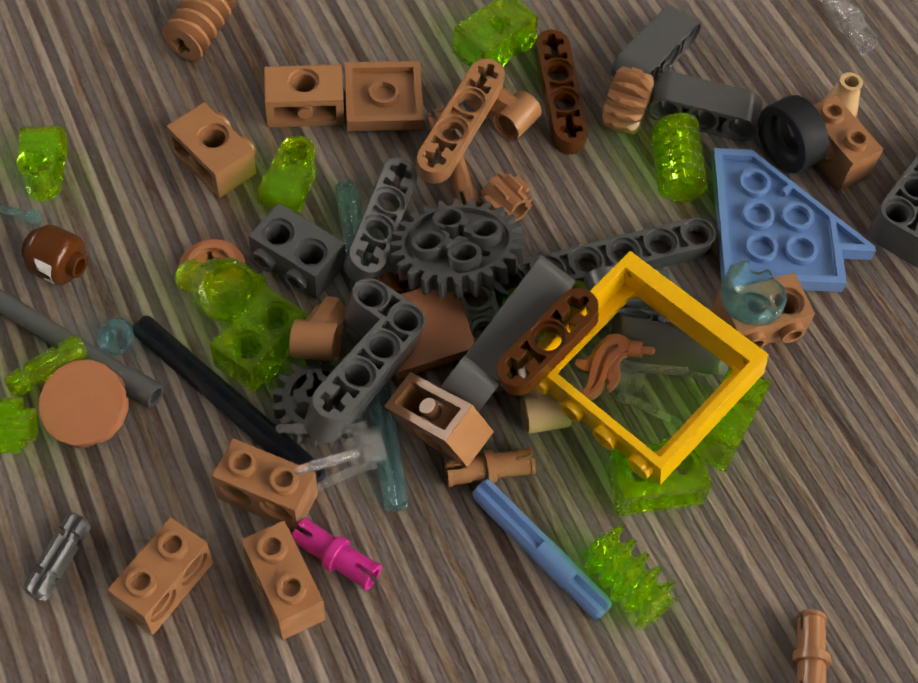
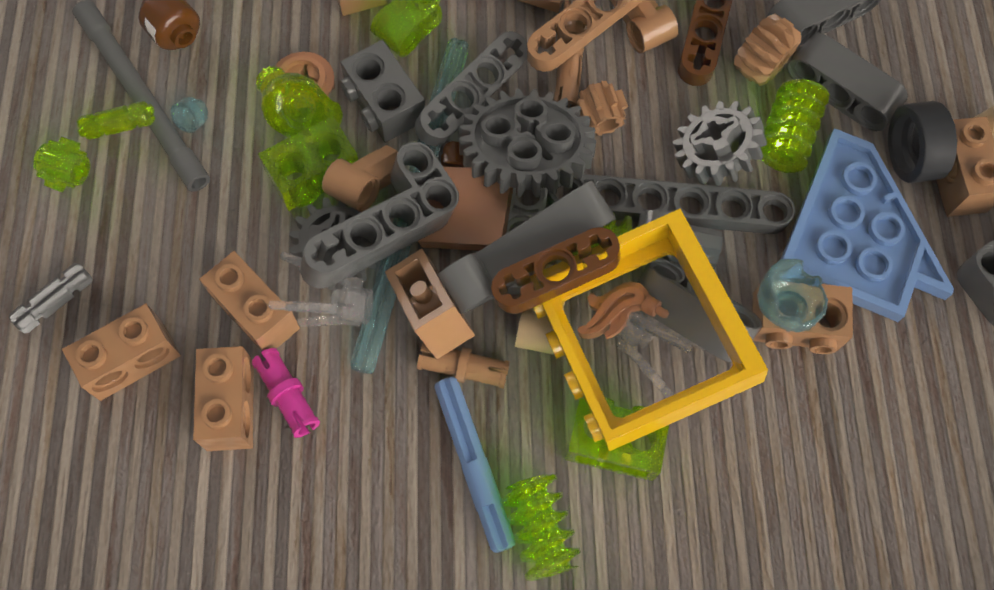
camera: 25 degrees right, 10 degrees up
(83, 403) = (132, 167): nougat tile -> none
(220, 393) = (257, 207): black axle -> none
(624, 192) = (720, 143): none -> dark grey gear
(724, 439) = (705, 425): clear neon green brick -> none

